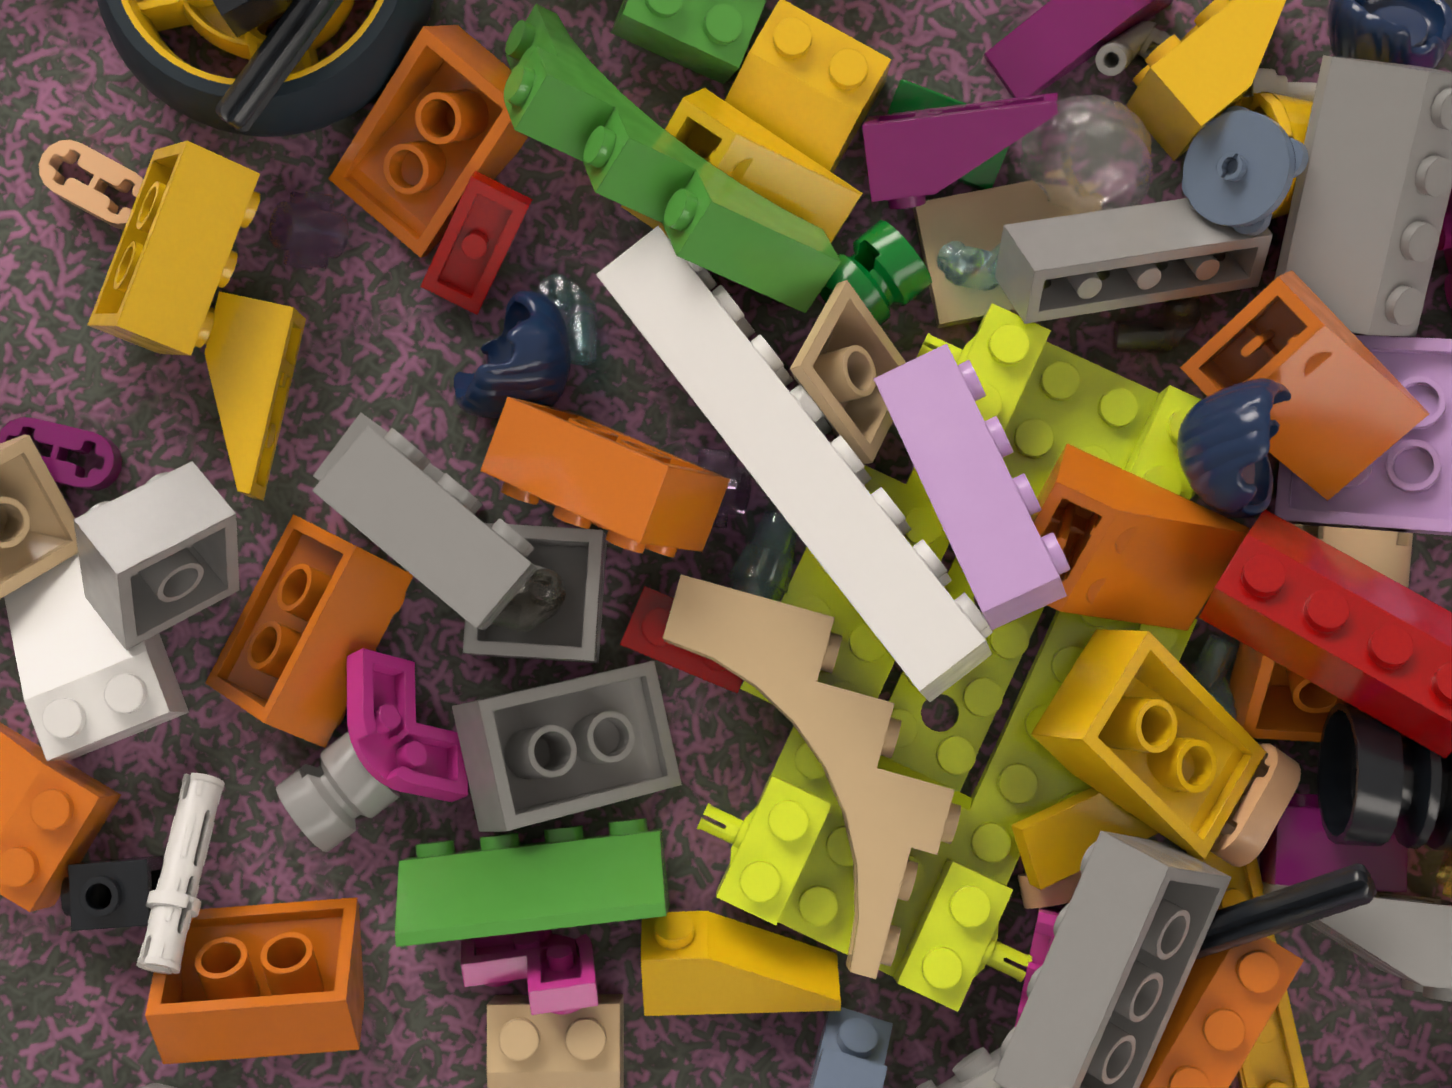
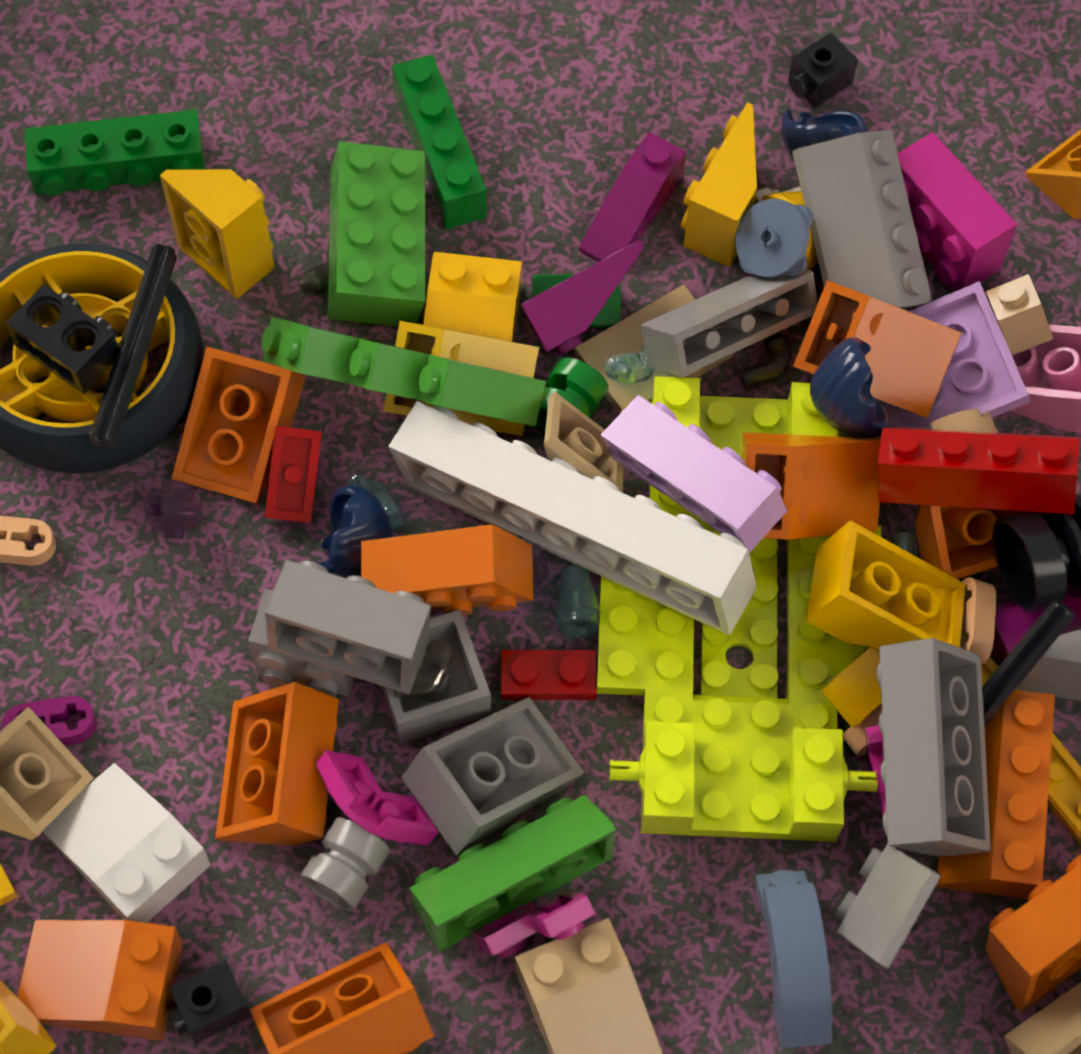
camera: 25 degrees left, 20 degrees down
(158, 554) = (156, 742): light grey brick -> none
(176, 250) = (88, 548): yellow brick -> none
(176, 892) = (256, 978): white pin -> none
(251, 373) = (166, 611): yellow slope -> none
(729, 967) = (662, 874): yellow slope -> none
(883, 812) = (621, 645): tan arch -> none
(1090, 155) = (672, 274): clear piece -> none
(1125, 47) = (667, 210): light grey arm -> none

